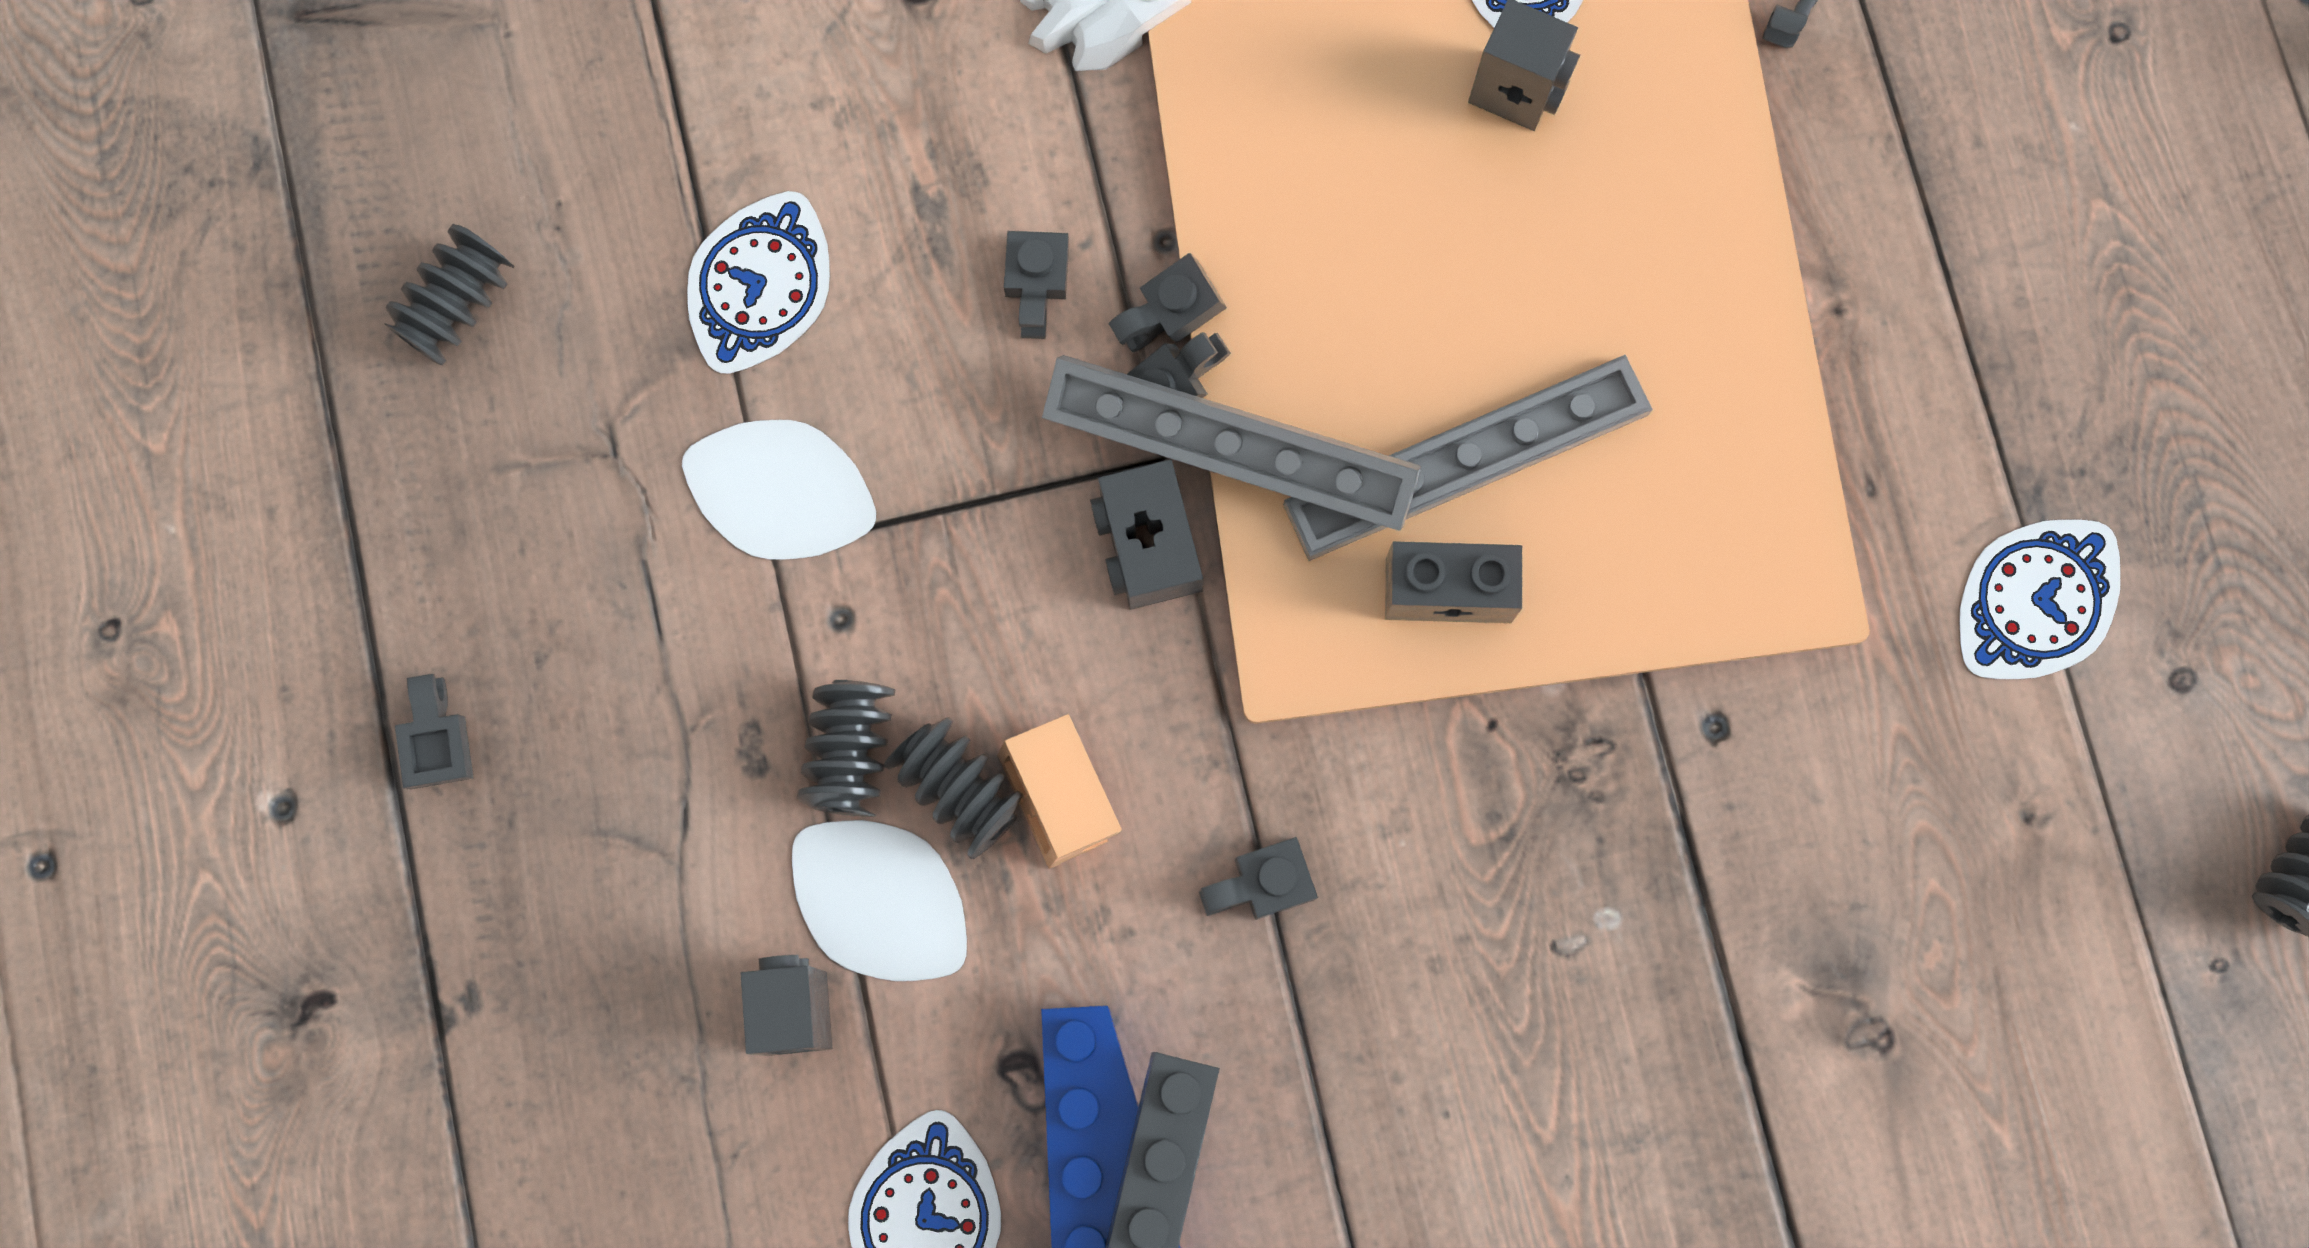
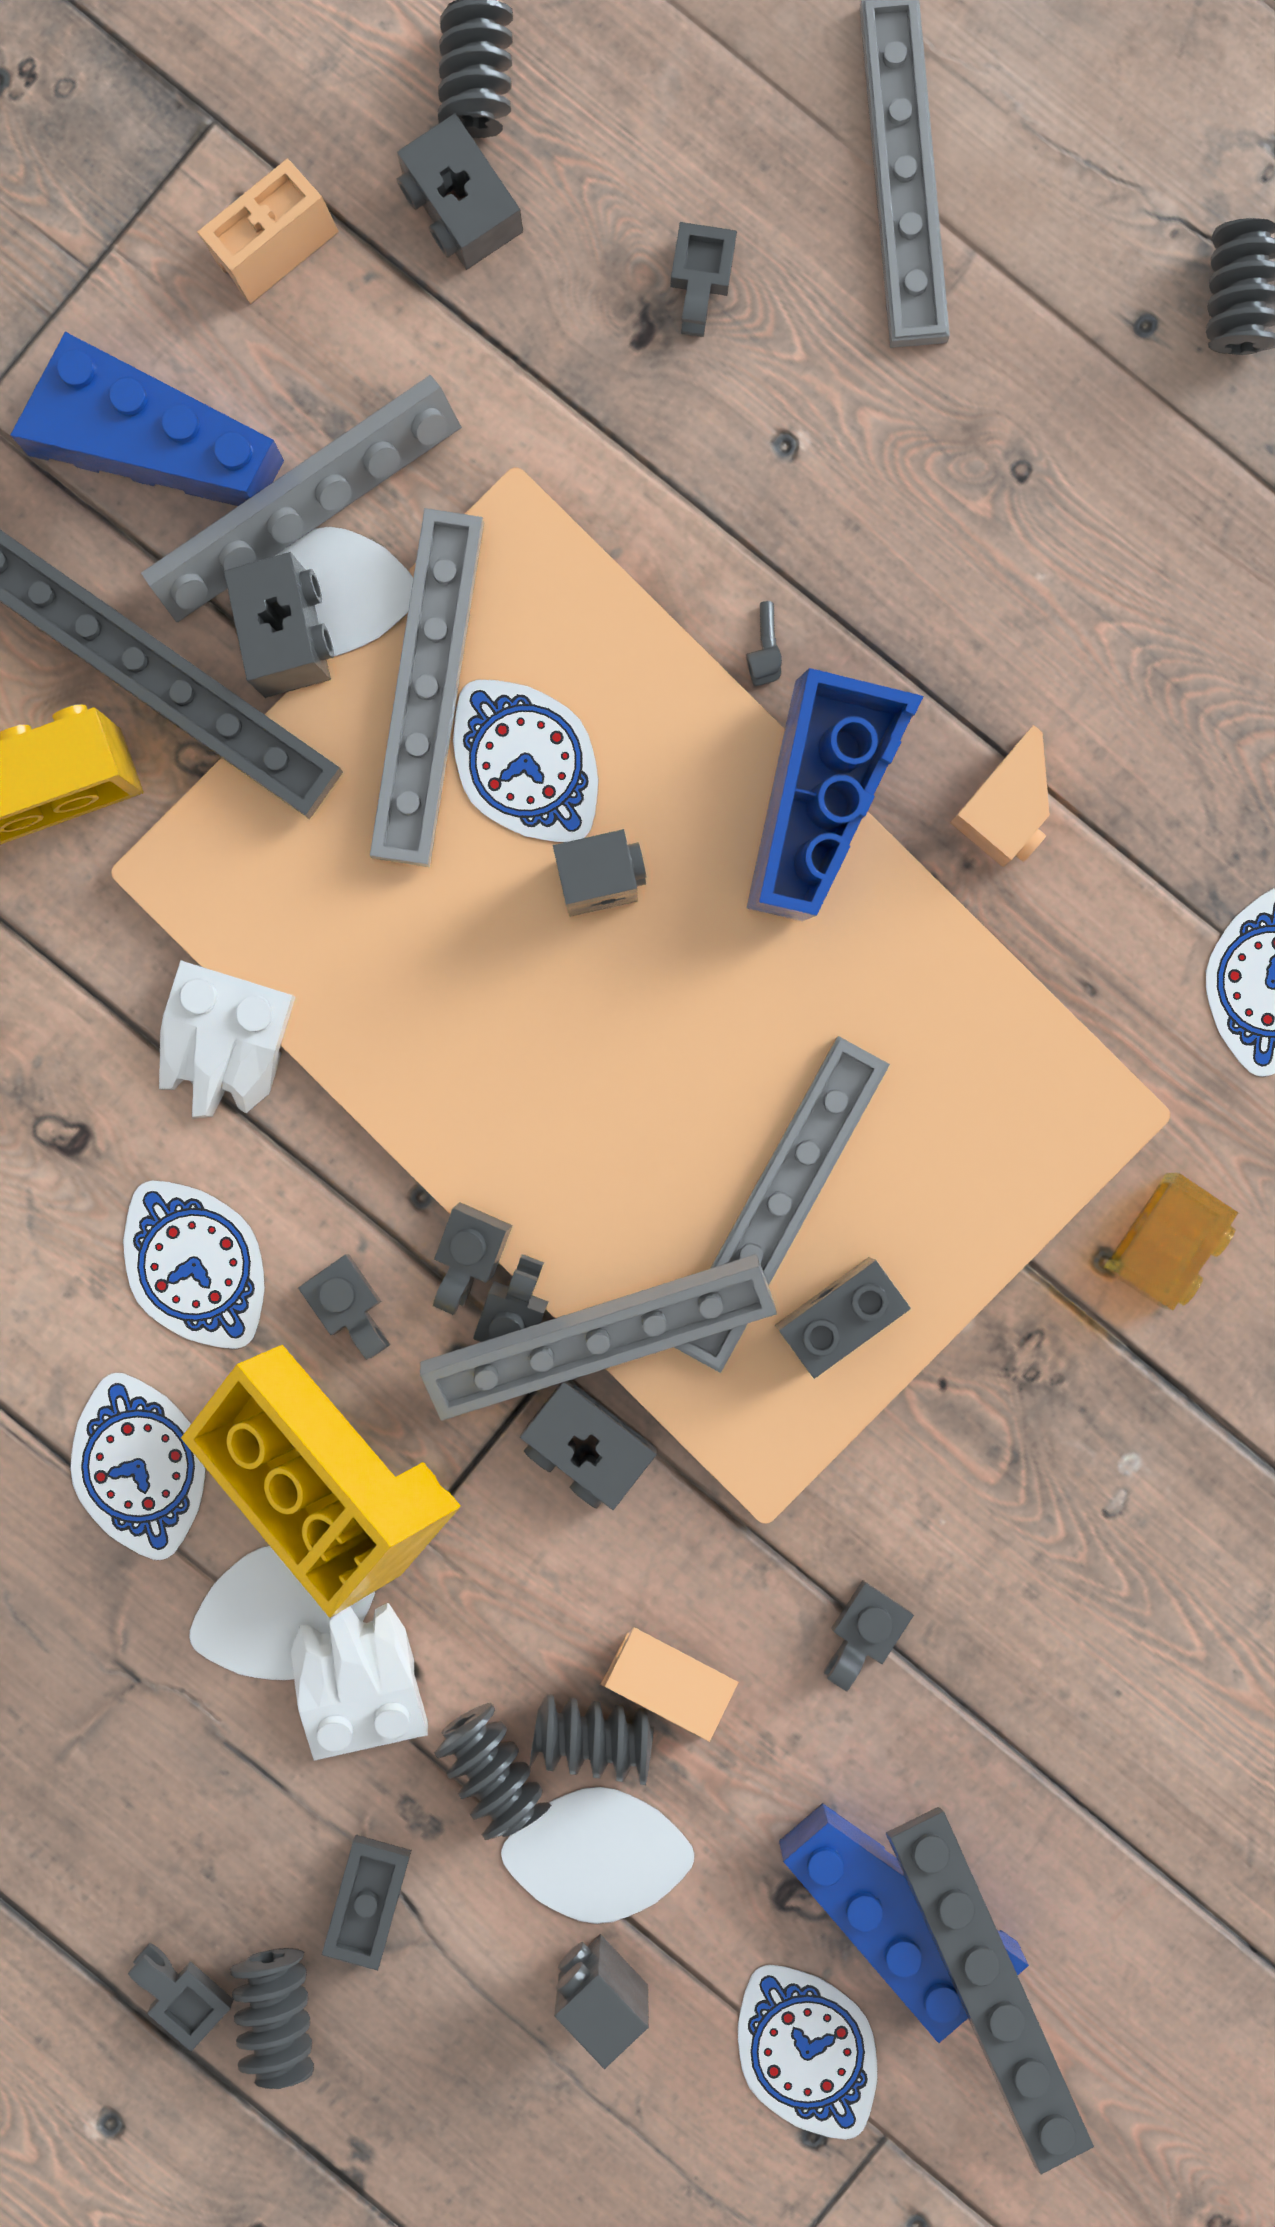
camera: 35 degrees left, 10 degrees up
(495, 811) = (275, 2018): none -> dark grey piece
(652, 780) = (366, 1902): none -> dark grey plate
(794, 588) = (356, 1684): none -> white plate
(899, 383) = (314, 1482): none -> yellow hinge
(935, 157) = (193, 1264): none -> sticker
(1783, 129) = (825, 780): none -> blue wedge
(1789, 744) = (1172, 1242): none -> clear yellow brick
(1913, 276) = (1010, 804): none -> light nougat slope

